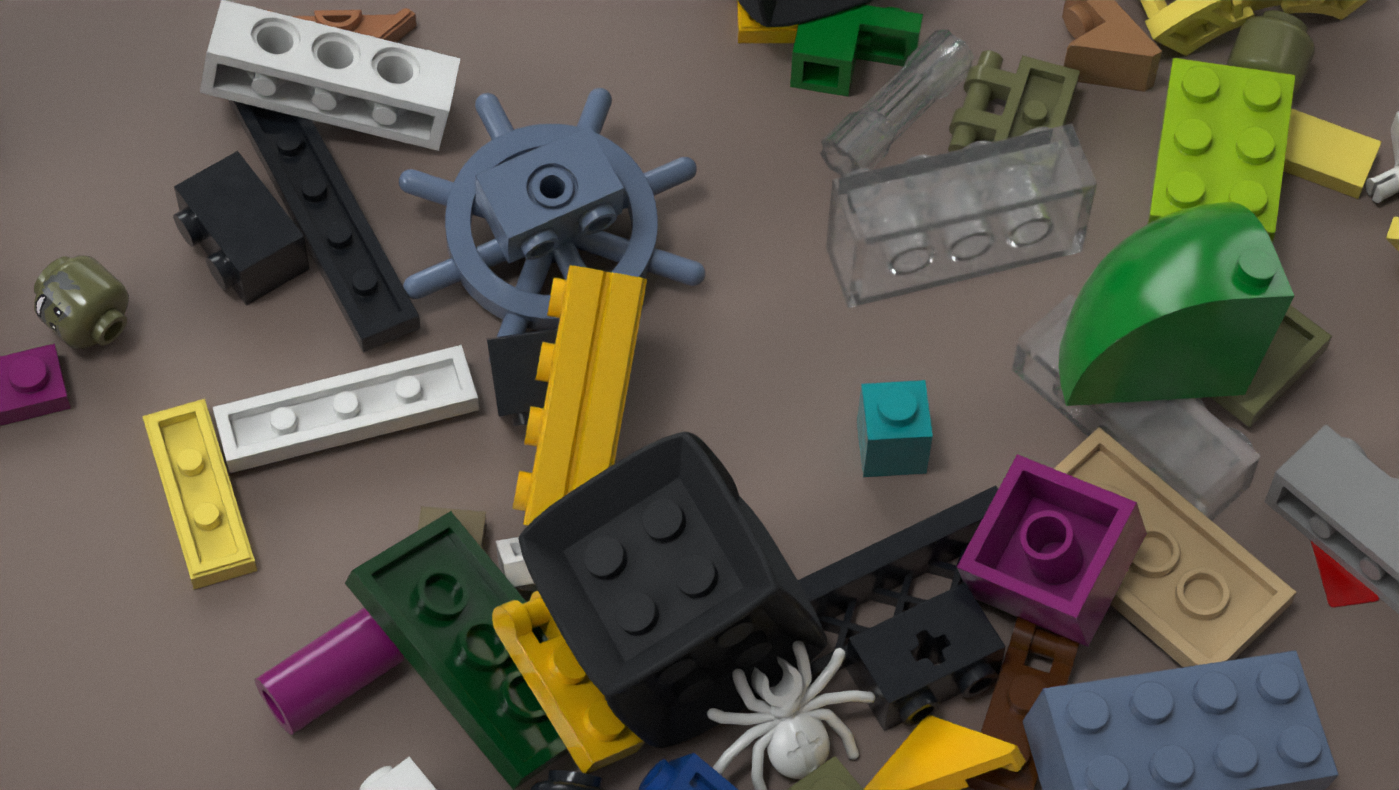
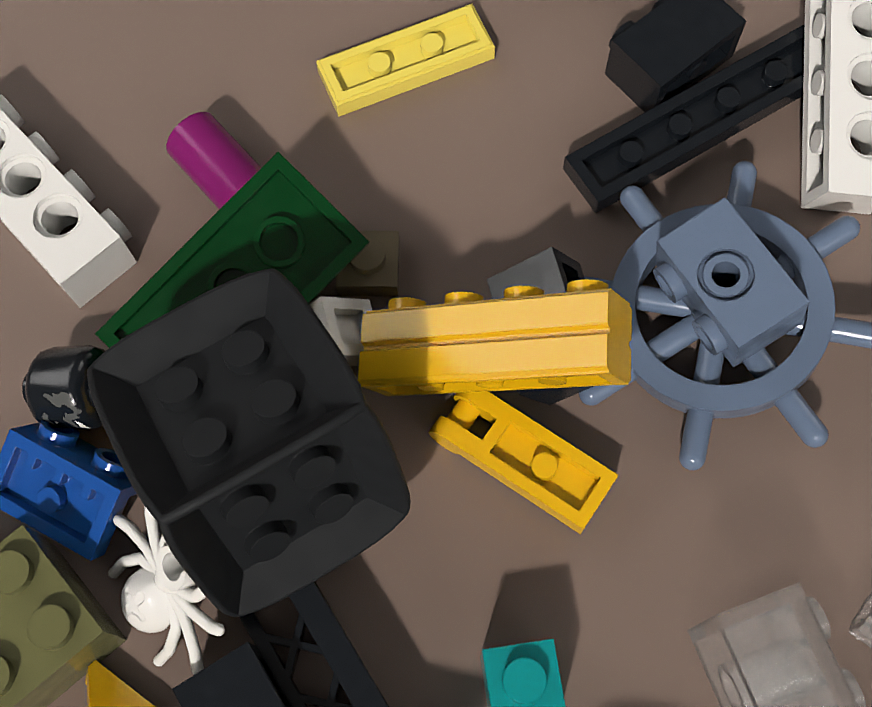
camera: 90 degrees right, 10 degrees up
(345, 408) = (496, 157): white plate -> none
(689, 396) = (526, 458): none -> yellow plate

